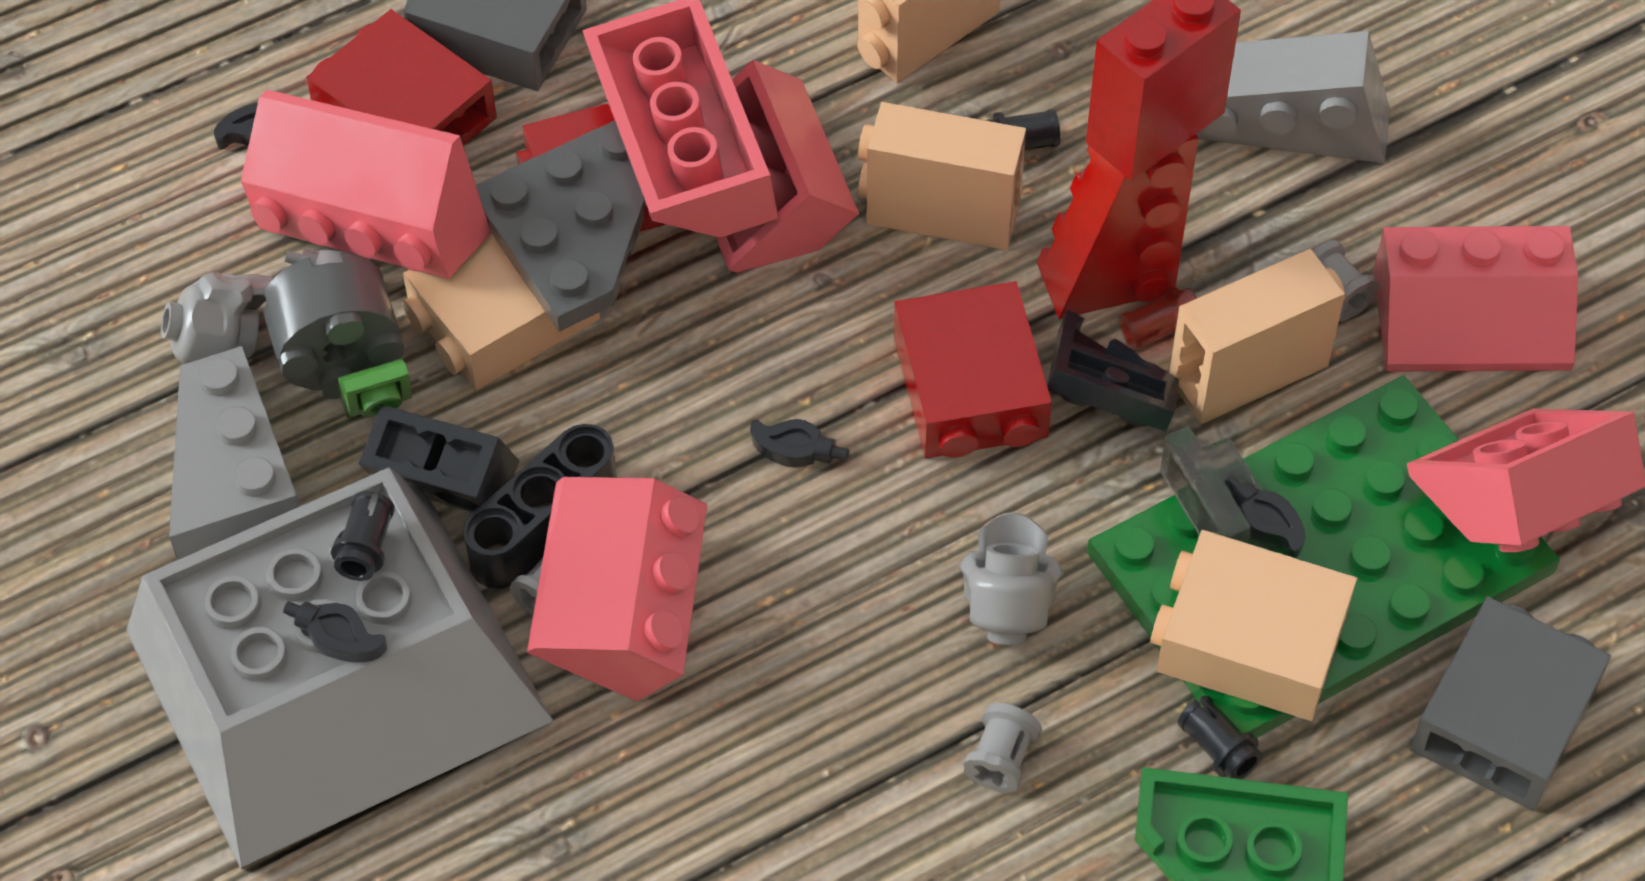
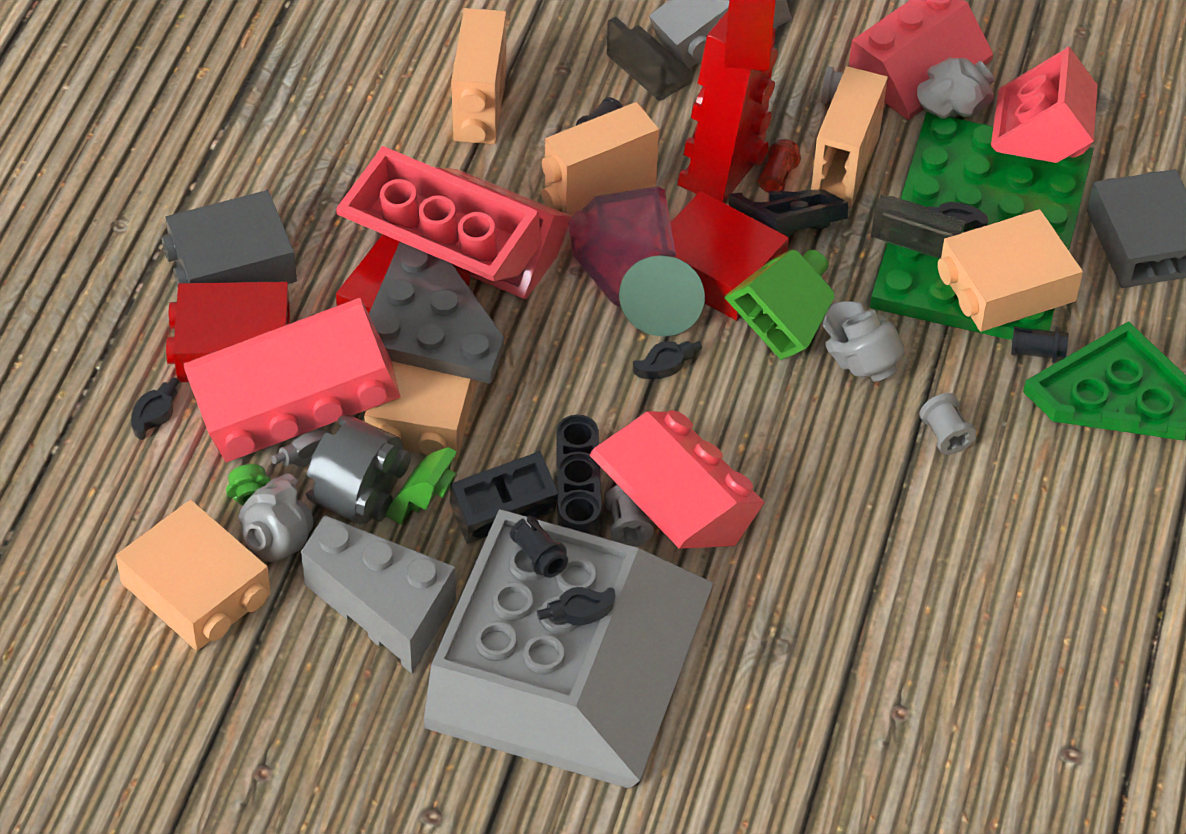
camera: 45 degrees left, 5 degrees down
(90, 317) = (194, 575): none -> light nougat brick
(244, 258) = (244, 482): none -> bright green plate
(846, 368) = (662, 295): none -> sand green sticker
(869, 273) = (619, 232): none -> clear pink slope
(970, 468) = (785, 300): none -> bright green torso
(1456, 370) = (956, 88): none -> light grey head

